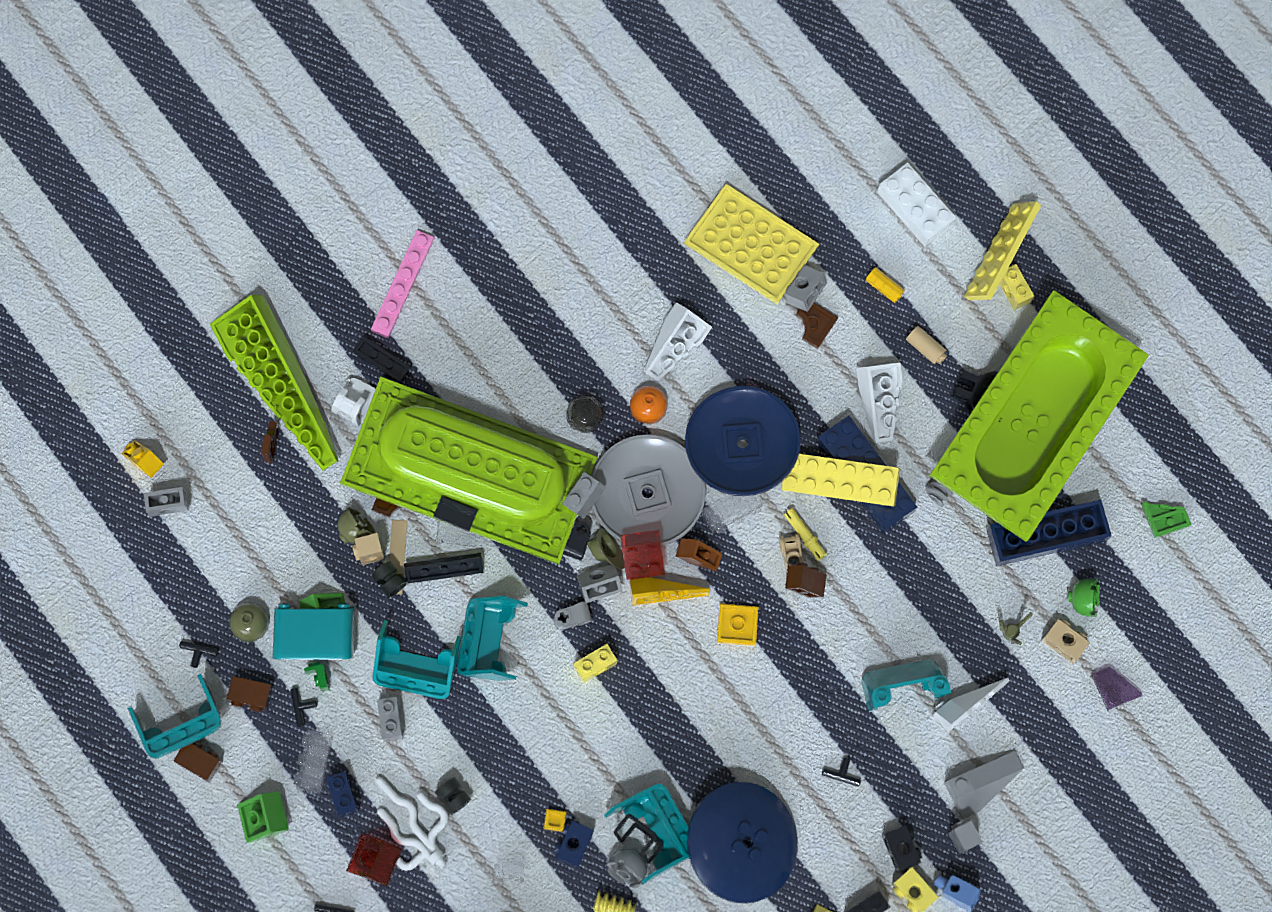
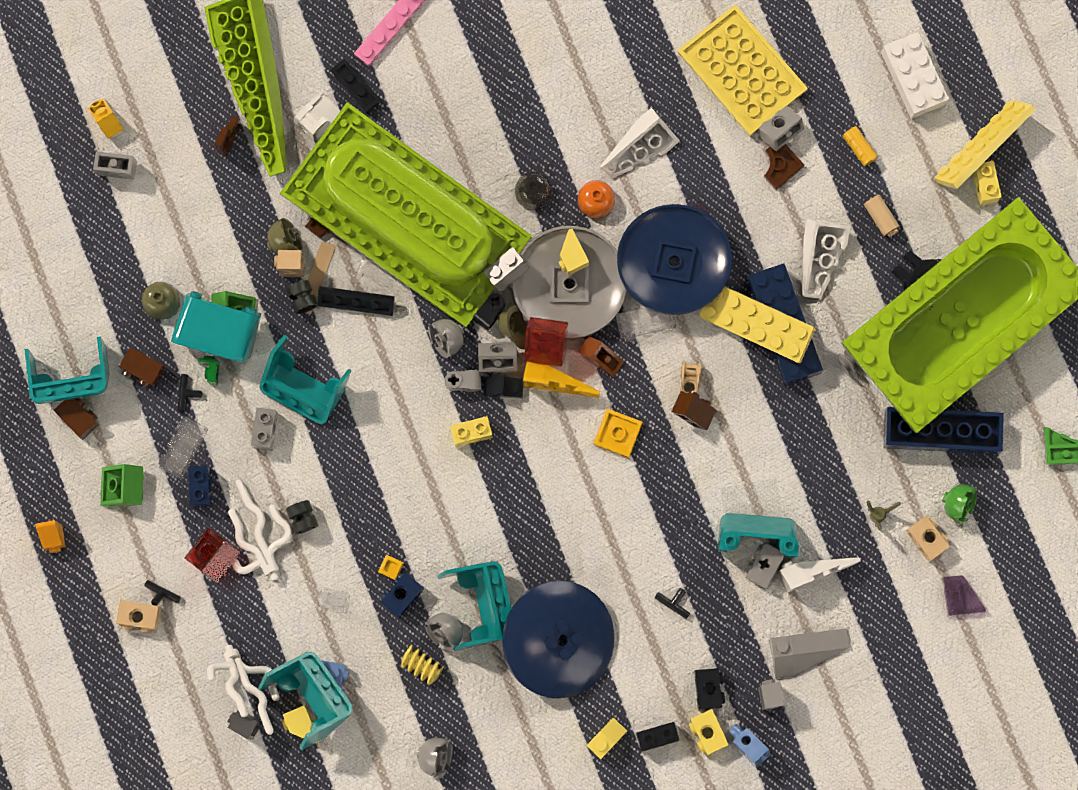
camera: 25 degrees right, 5 degrees up
(198, 650) = (106, 313): black piece -> none
(206, 887) = (51, 536): none -> light orange slope
(455, 514) = (379, 253): black panel -> none
(483, 637) = (374, 376): teal windscreen -> none
(544, 577) = (447, 336): none -> light grey cylinder
(613, 611) = (503, 386): none -> black slope
(643, 828) = (473, 604): black piece -> none
(644, 464) = (572, 255): none -> light yellow slope
(810, 541) = (711, 373): light yellow pin -> none
(925, 703) = (763, 577): none -> light grey brick

